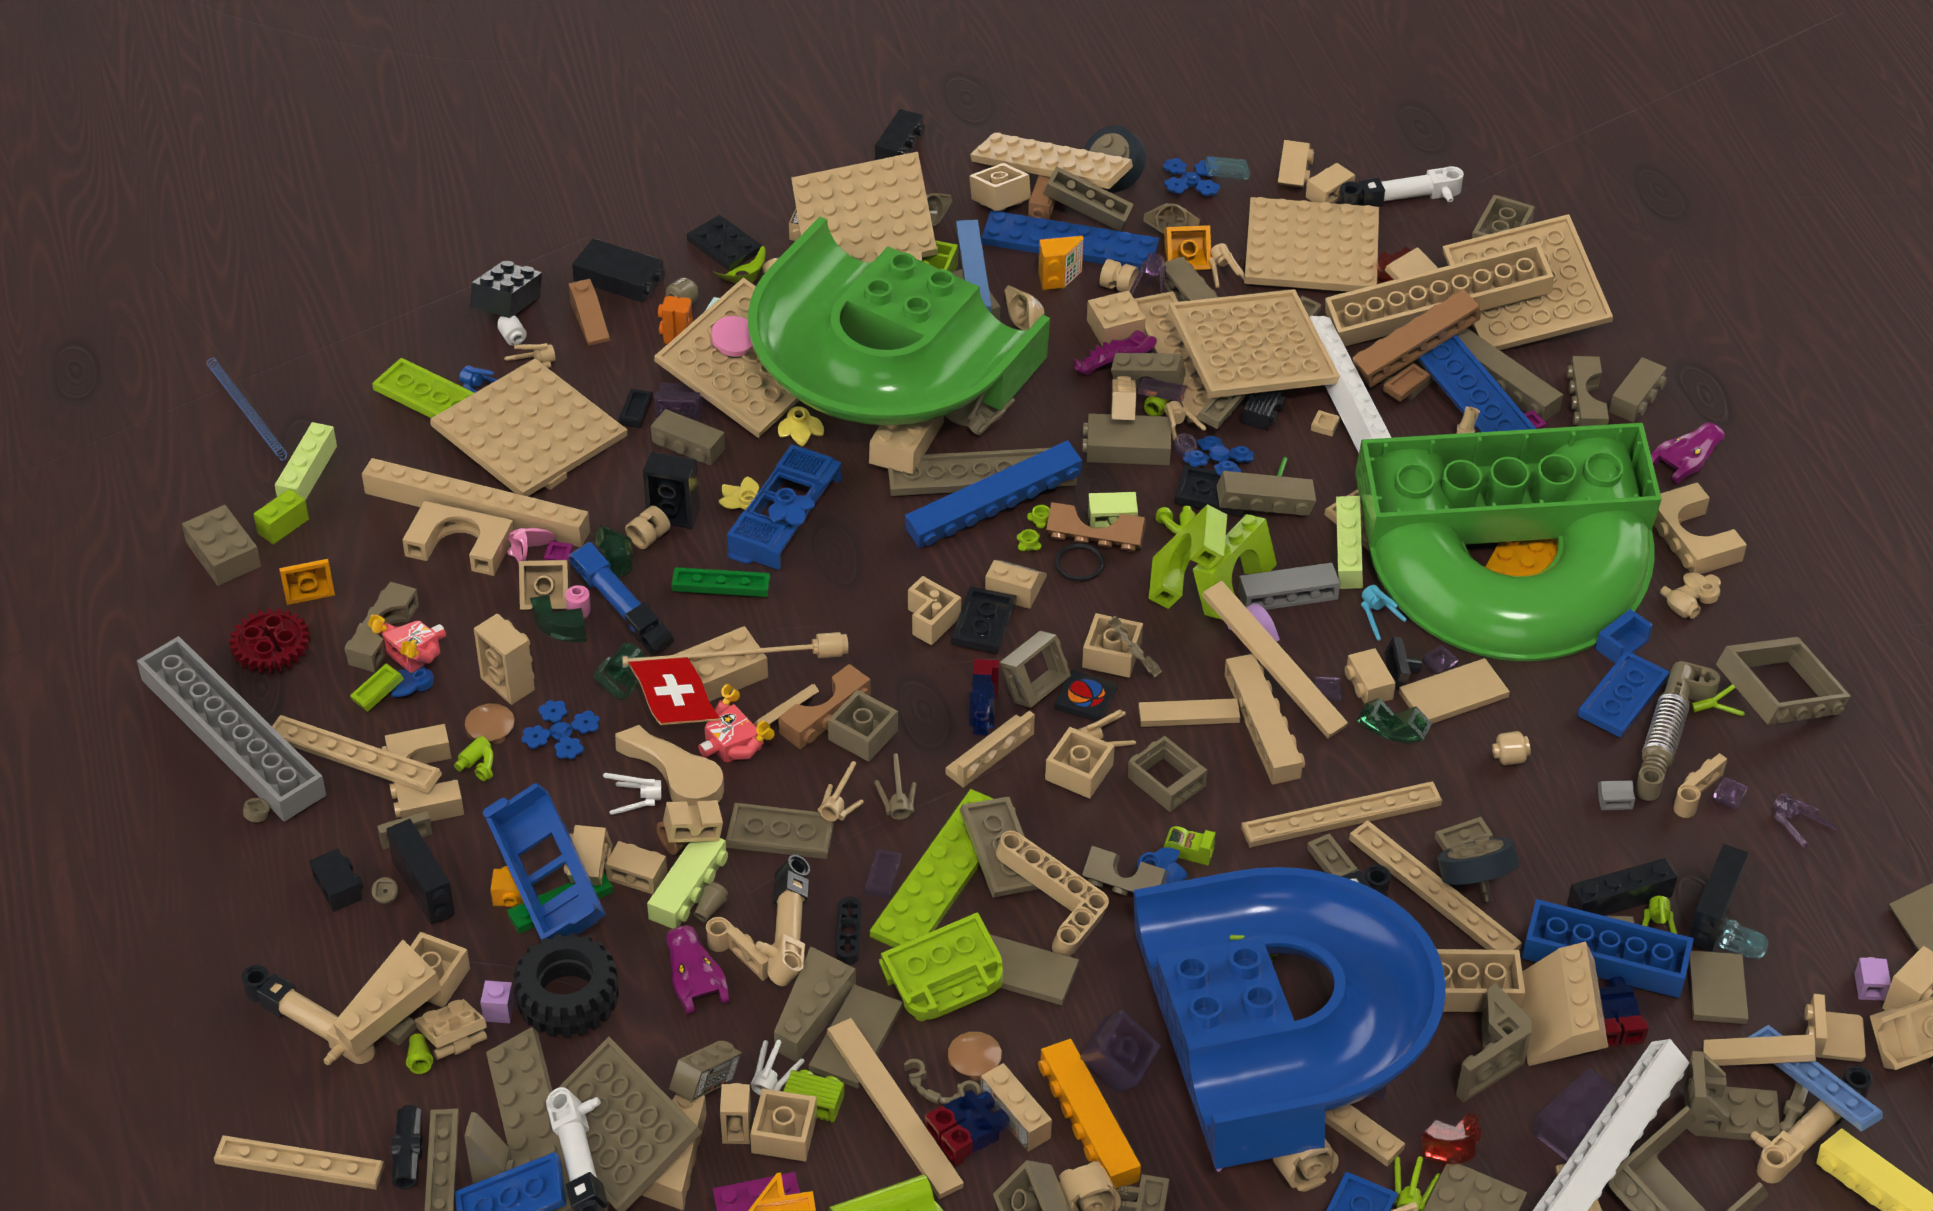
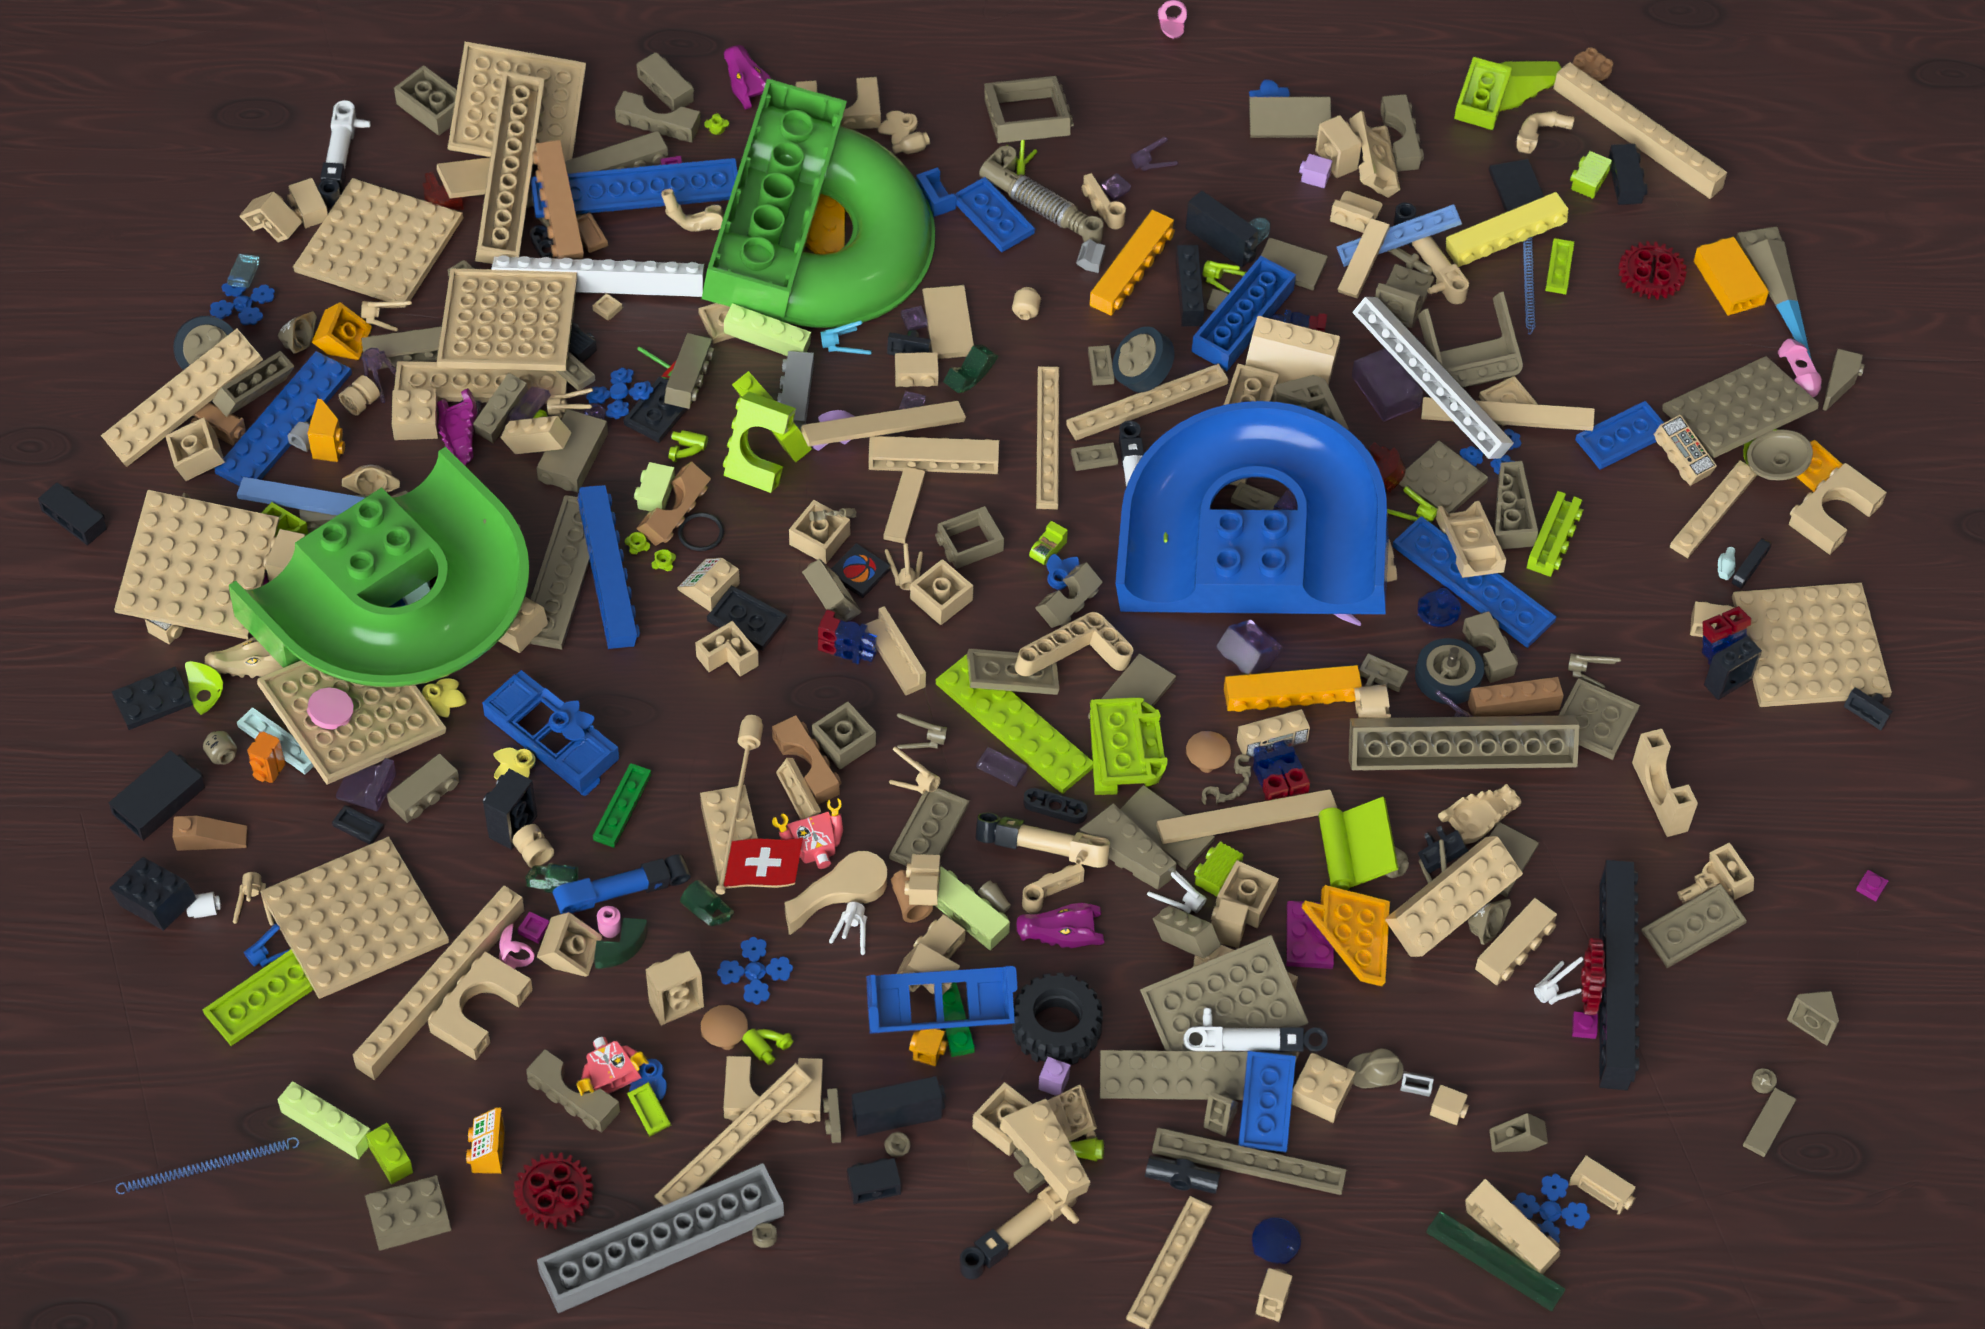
camera: 75 degrees left, 10 degrees up
(1627, 830) = (1132, 263): none -> light orange brick

